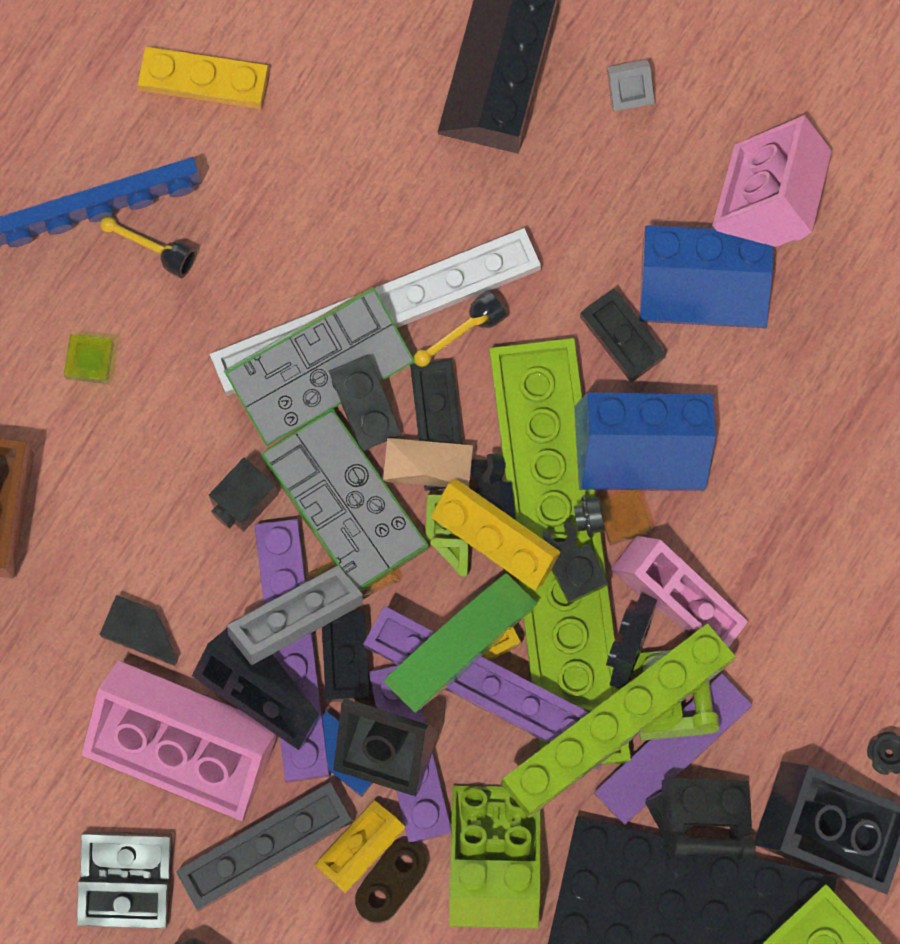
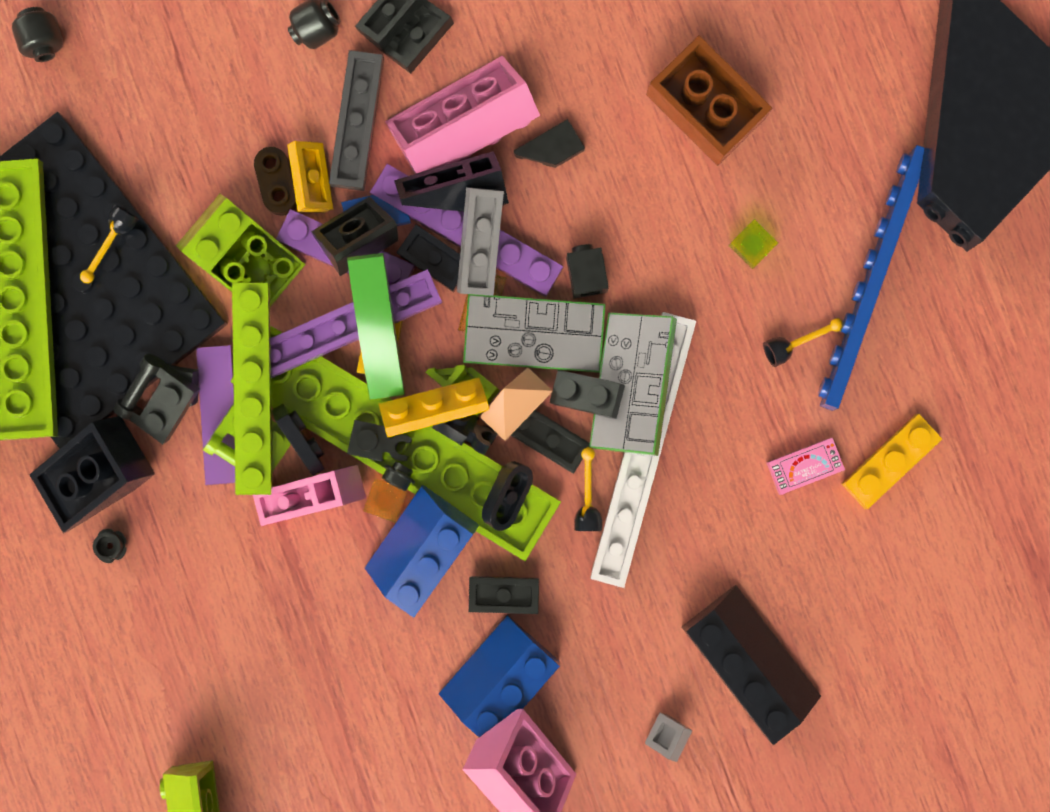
camera: 125 degrees right, 10 degrees up
(271, 152) = (805, 466): none -> bright pink tile
(525, 397) = (507, 495): none -> black plate

